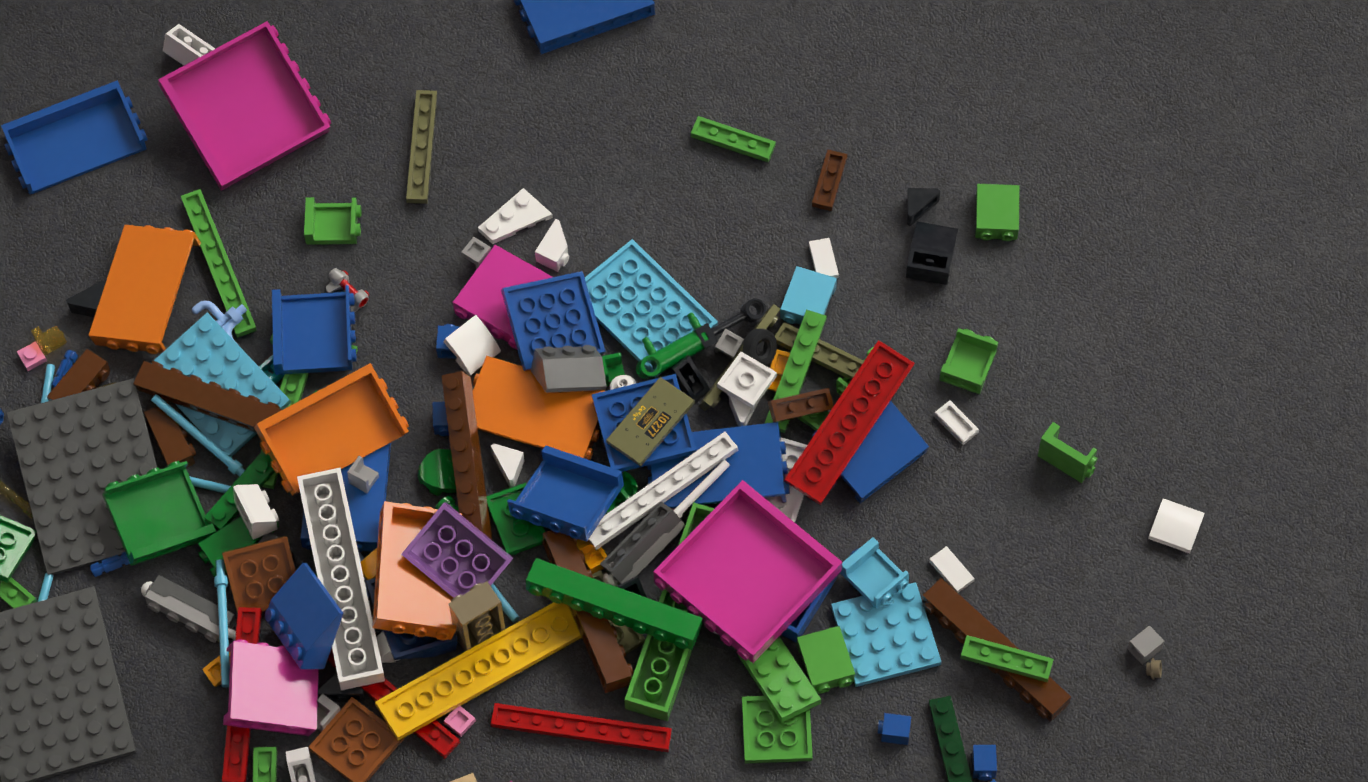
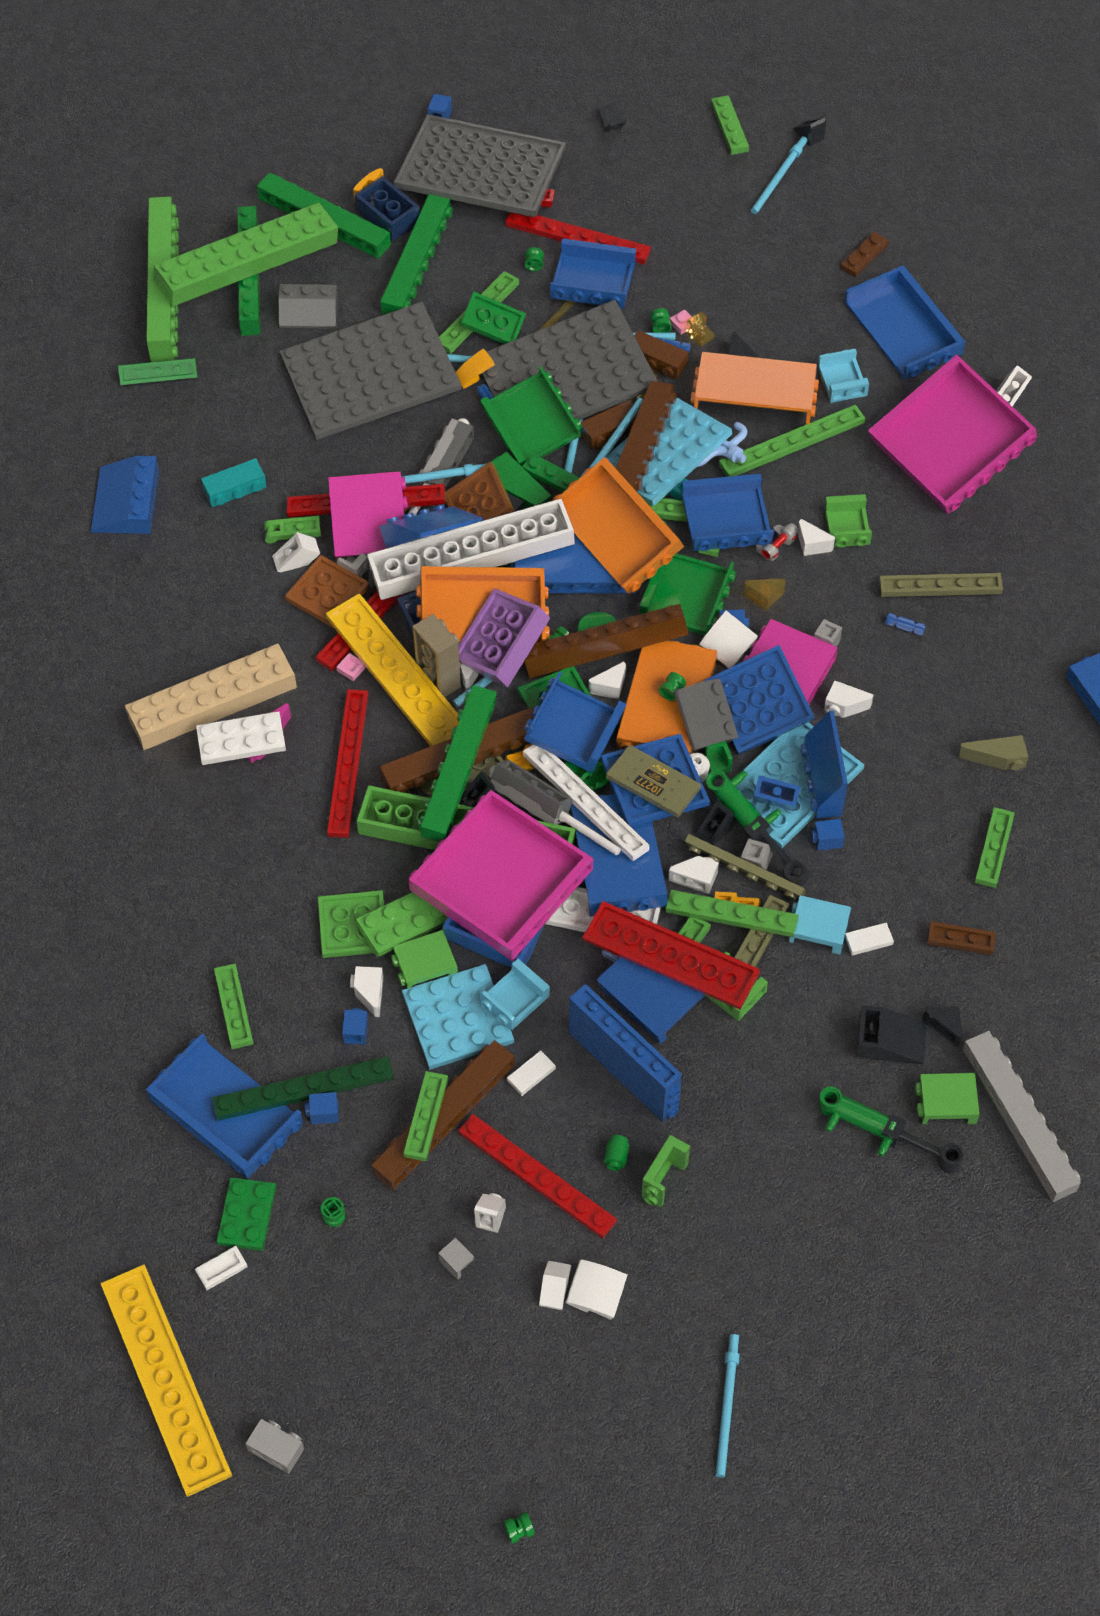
camera: 85 degrees right, 5 degrees down
(31, 376) = (660, 320): none -> green wheel
(69, 571) = (473, 367): none -> light orange slope
(137, 205) = (842, 376): none -> medium azure panel
(254, 510) = (534, 479): white slope -> none
(350, 256) = (814, 539): none -> white slope
(361, 475) = (578, 558): light grey panel -> none
(411, 376) = (695, 586): none -> green panel
(413, 308) = (764, 592): none -> clear yellow slope
(464, 185) = (905, 624): none -> blue axle
(513, 216) = (878, 668): white wing -> none
(532, 398) = (673, 682): none -> green wheel
(629, 119) = (998, 753): none -> olive slope
(647, 263) = (825, 768): none -> blue slope
(668, 315) = (776, 793): none -> blue brick
(708, 279) = (828, 834): none -> blue brick
(747, 380) = (712, 866): white plate -> none
(769, 349) = (747, 889): black tyre -> none
(800, 405) = (689, 913): reddish brown plate -> none
(854, 714) = (368, 987): none -> white slope
(951, 472) = (624, 1053): none -> blue panel
(956, 422) = (698, 1071): white tile -> none
(969, 360) = (767, 1079): bright green panel -> none
(1015, 155) = (1021, 1116): none -> light grey brick
(1025, 265) = (887, 1128): none -> green piece
(1041, 497) = (616, 1152): none -> green brick
(1059, 572) = (537, 1176): none -> red plate
(1094, 760) = (333, 1217): none -> green wheel
(1100, 610) = (489, 1212): none -> white slope
(1154, 668) = (431, 1269): dark tan plate -> none
(1170, 560) = (554, 1285): none -> white slope
(1244, 419) = (731, 1360): none -> medium azure bar

